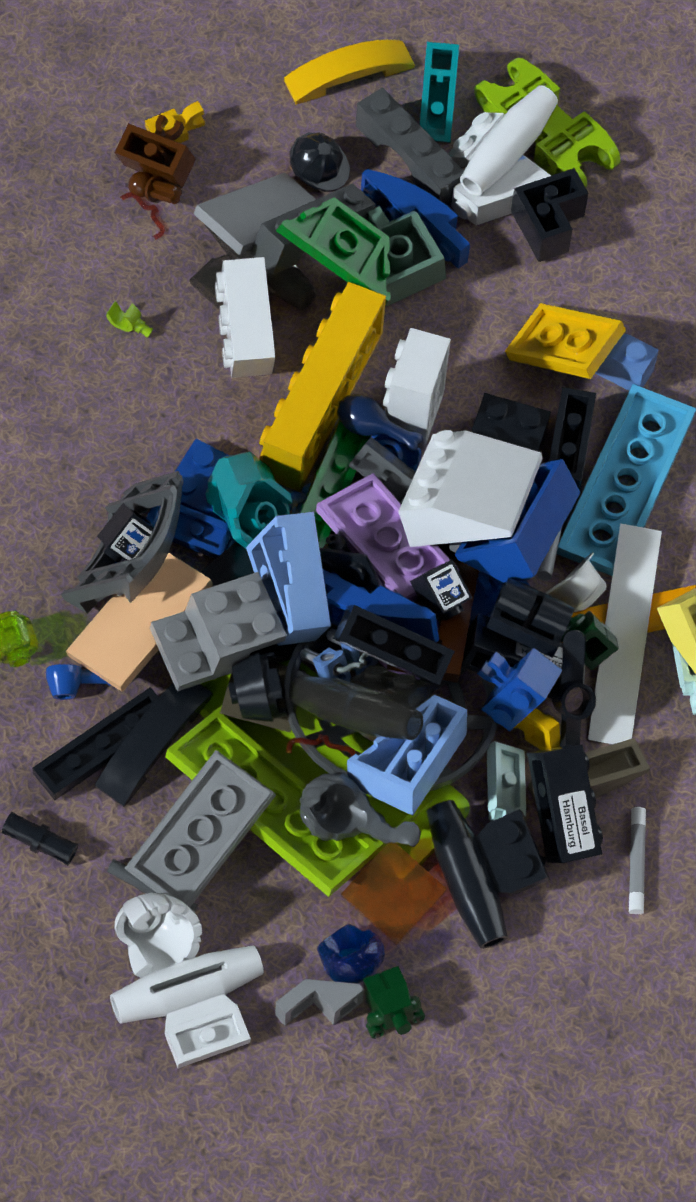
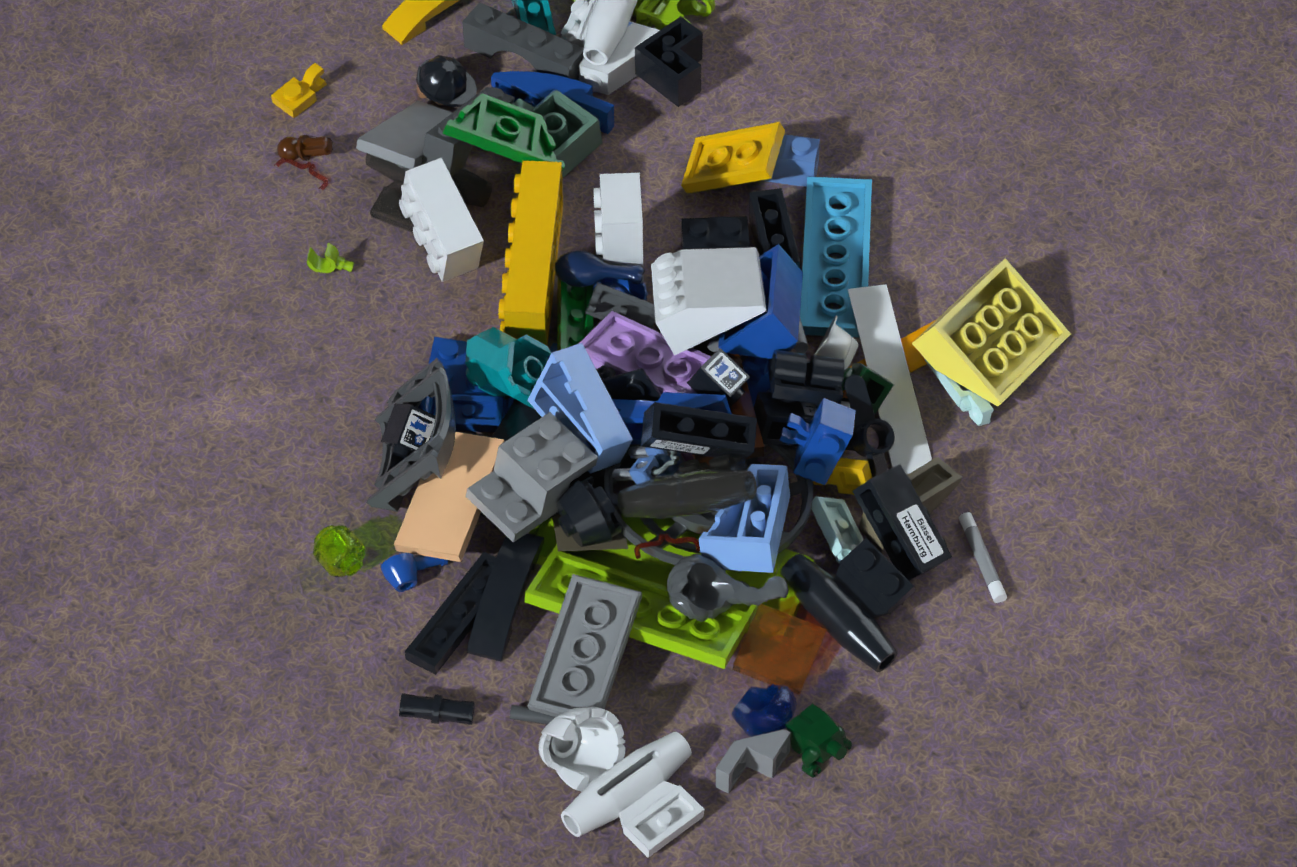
camera: 15 degrees left, 10 degrees down
(156, 152) = (295, 115): reddish brown brick -> none

